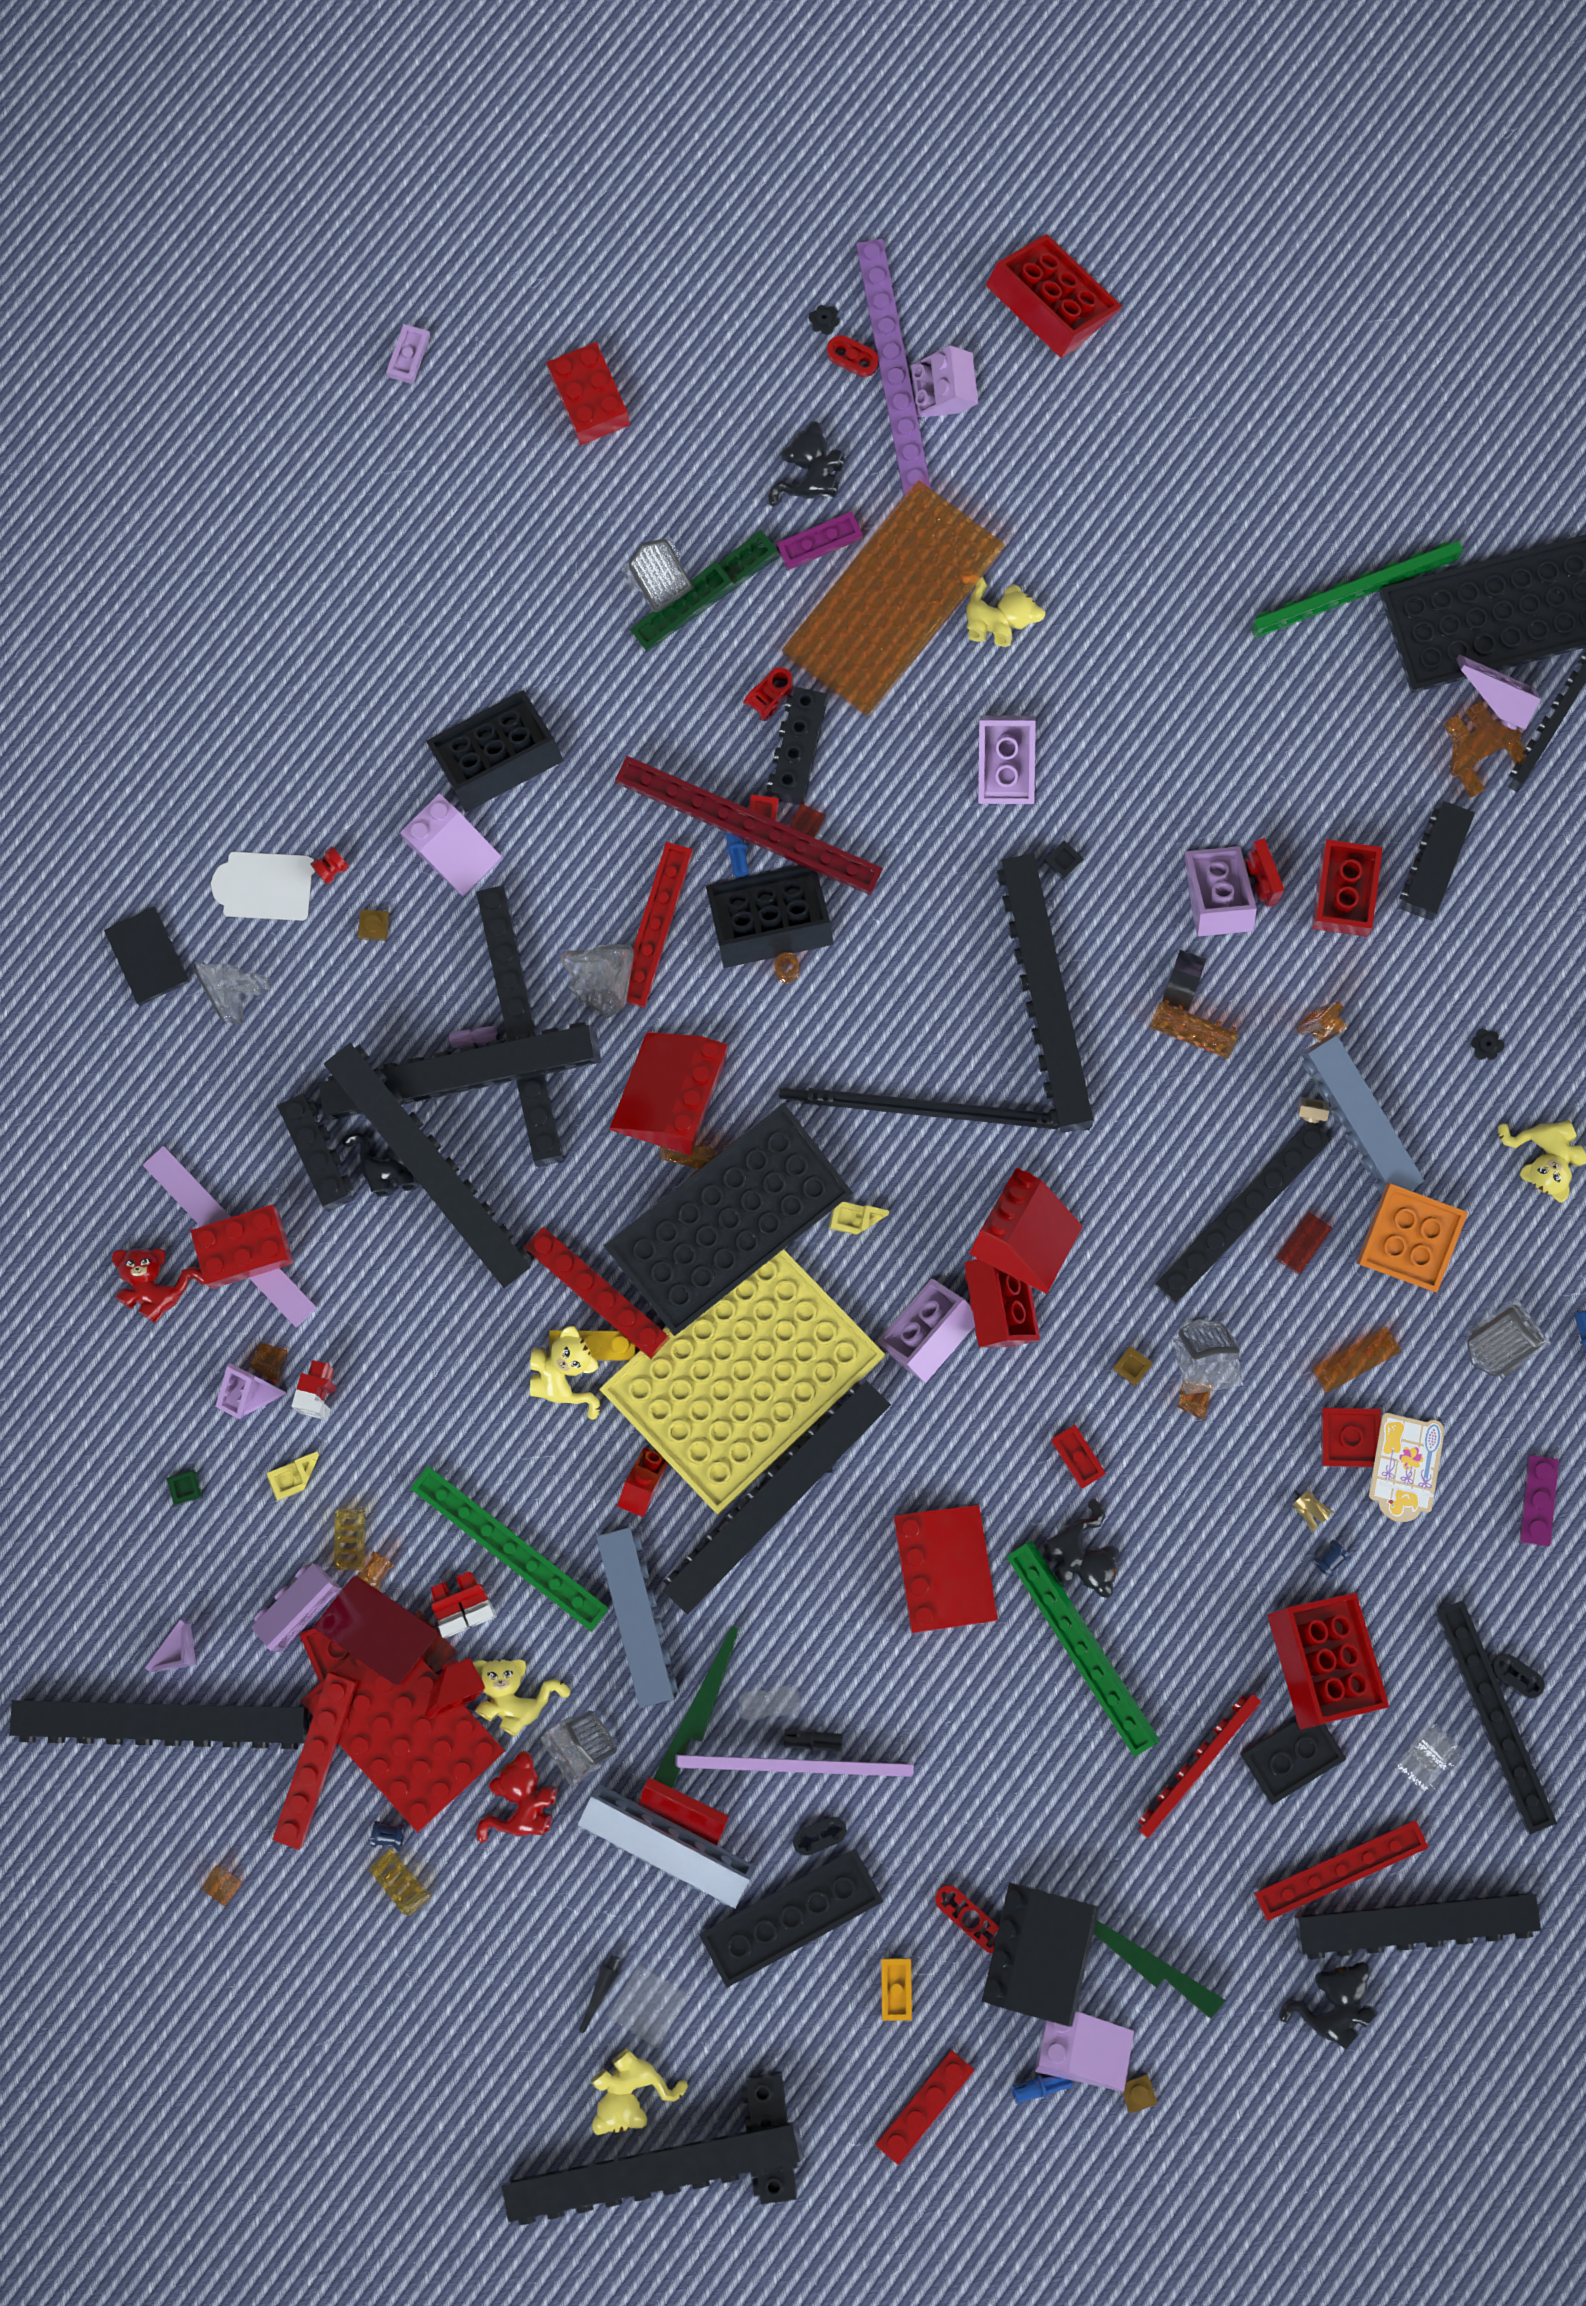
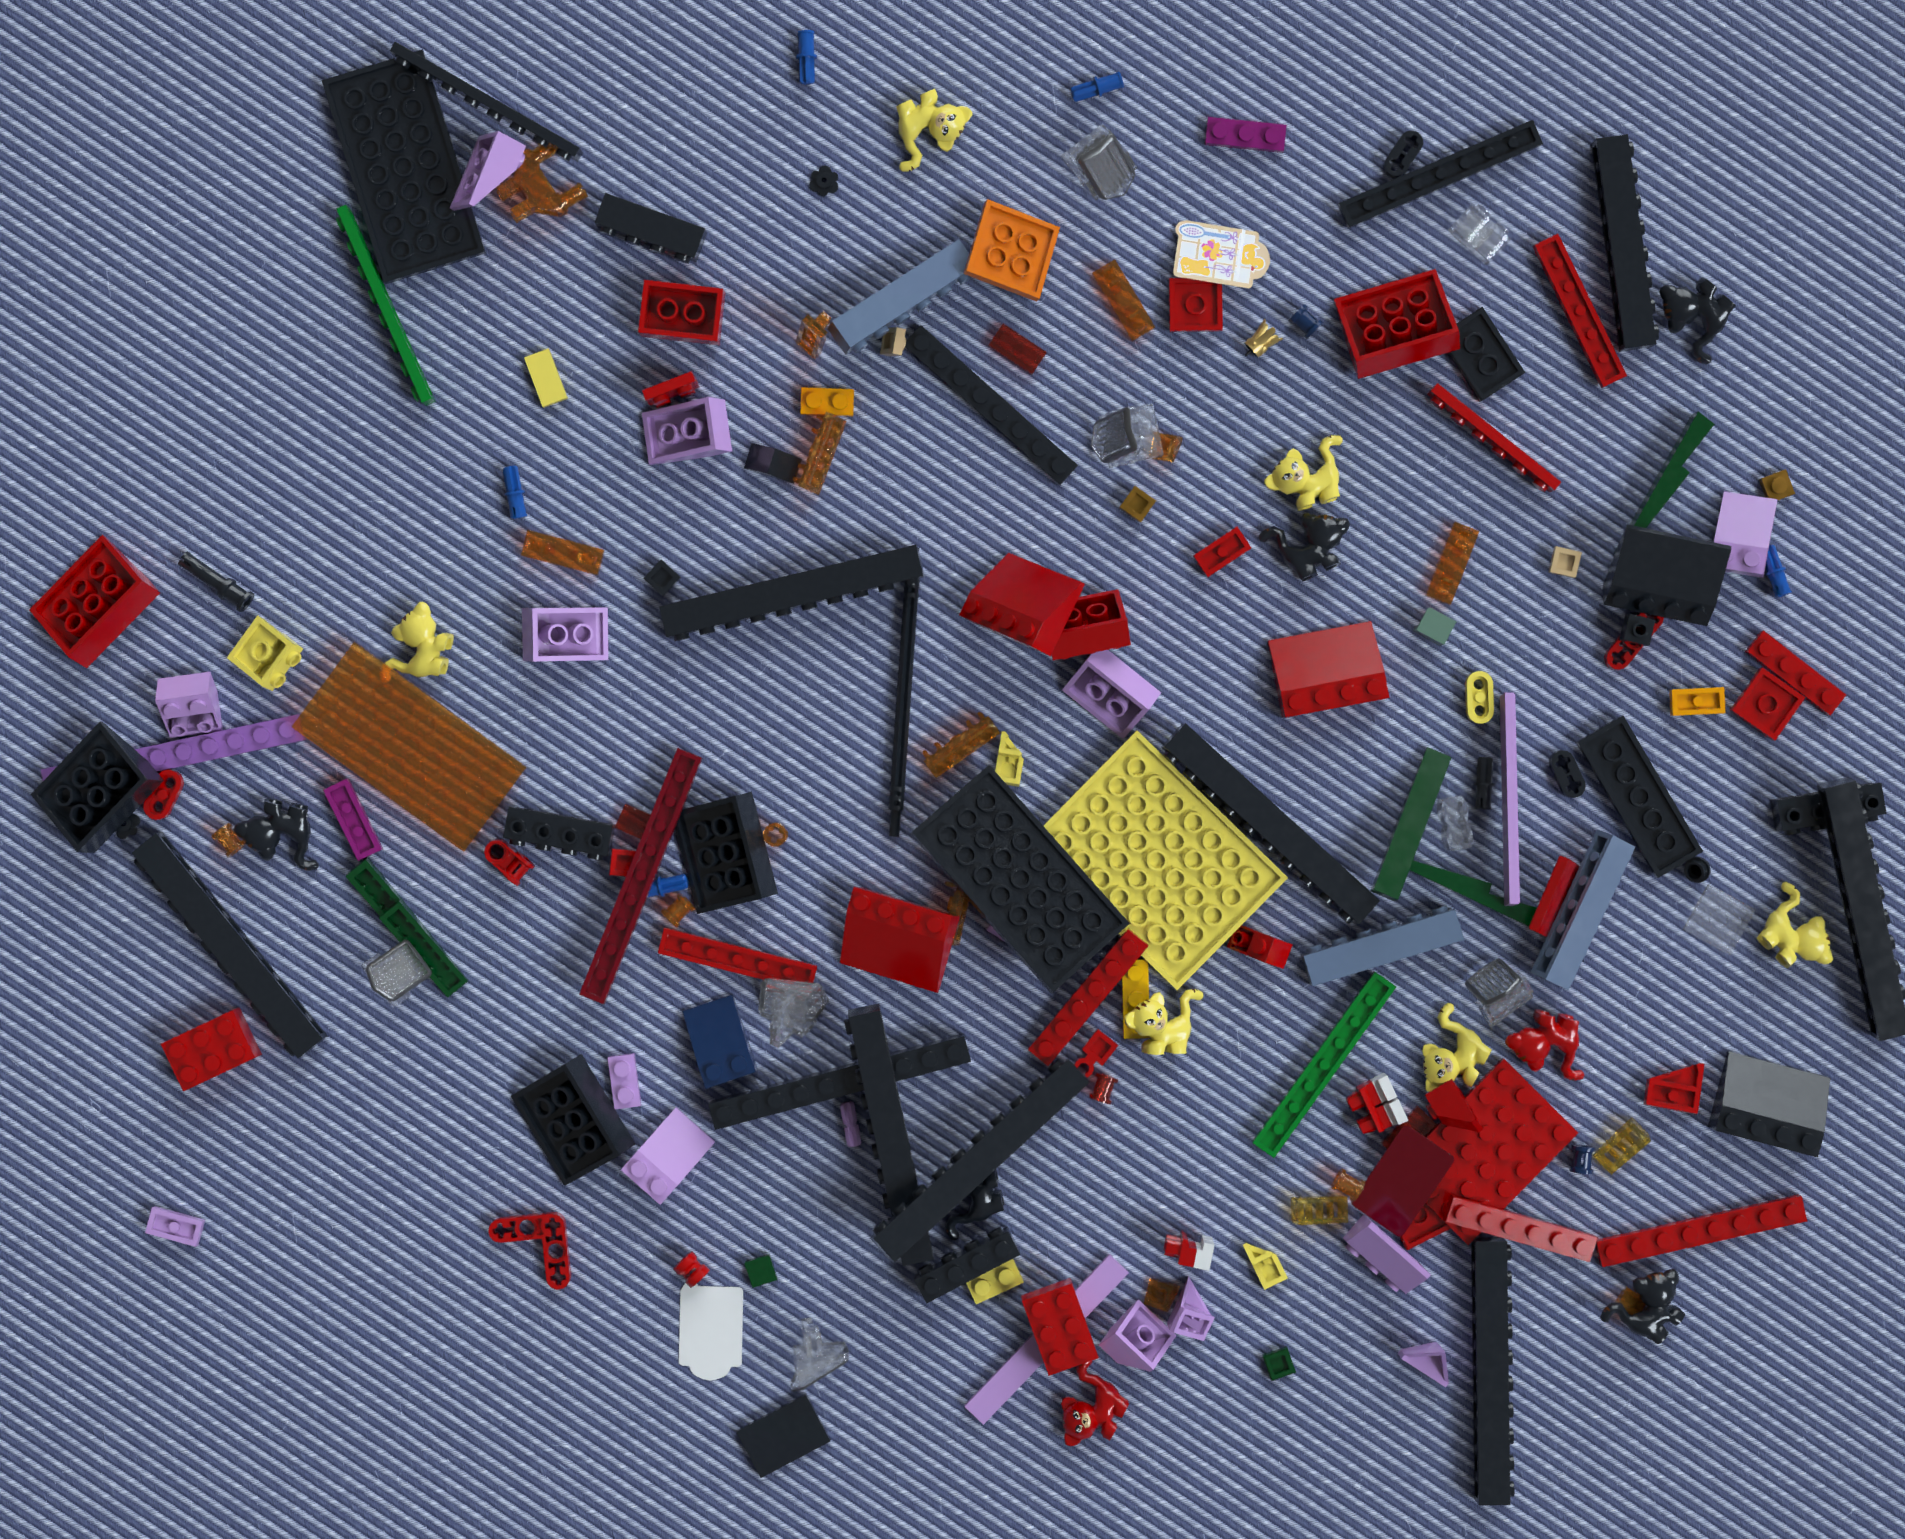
camera: 100 degrees left, 10 degrees up
(222, 1333) = (1138, 1338): none -> lavender slope
(233, 1913) = (1656, 1292): none -> black animal
(296, 1183) = (995, 1281): none -> light yellow plate
(299, 1971) = (1701, 1230): none -> red plate
(323, 938) = (761, 1270): none -> dark green tile
(373, 925) = (746, 1224): pearl gold plate -> none
(378, 717) = (541, 1231): none -> red beam
(436, 2057) = (1771, 1104): none -> slope
(459, 1947) = (1676, 1090): none -> red wing
(496, 1306) = (1103, 1088): none -> clear red bush
(532, 805) = (624, 1081): none -> lavender plate
(538, 1302) = (1098, 1049): none -> red plate
(568, 903) = (719, 1041): none -> dark blue slope
(606, 1977) = (1698, 958): black piece -> none
(694, 415) = (229, 945): none -> black brick
(706, 1980) = (1697, 869): none -> black plate
(710, 865) = (678, 910): none -> clear orange bush
(770, 1653) = (1410, 825): none -> dark green slope
(802, 417) = (228, 840): none -> clear orange bush
(860, 289) = (96, 788): none -> black slope
(874, 1166) = (961, 745): none -> clear orange plate
(890, 2071) = (1767, 704): none -> red plate
(909, 1738) = (1483, 697): none -> light yellow plate
(974, 1909) = (1628, 631): none -> black plate
(990, 1690) = (1435, 626): none -> sand green panel
(994, 459) = (265, 654): none -> light yellow plate
(1057, 1842) = (1564, 562): none -> tan plate
(1059, 1714) = (1452, 563): none -> clear orange plate
(1064, 422) = (225, 588): none -> black pin
(1083, 1648) = (1394, 543): green plate -> none
(1093, 761) = (562, 552): none -> clear orange plate
(1157, 712) = (514, 492): none -> blue axle
(1159, 1538) = (1293, 476): none -> light yellow animal
(1250, 1041) = (830, 400): none -> light orange plate
(1278, 749) = (546, 378): none -> light yellow tile

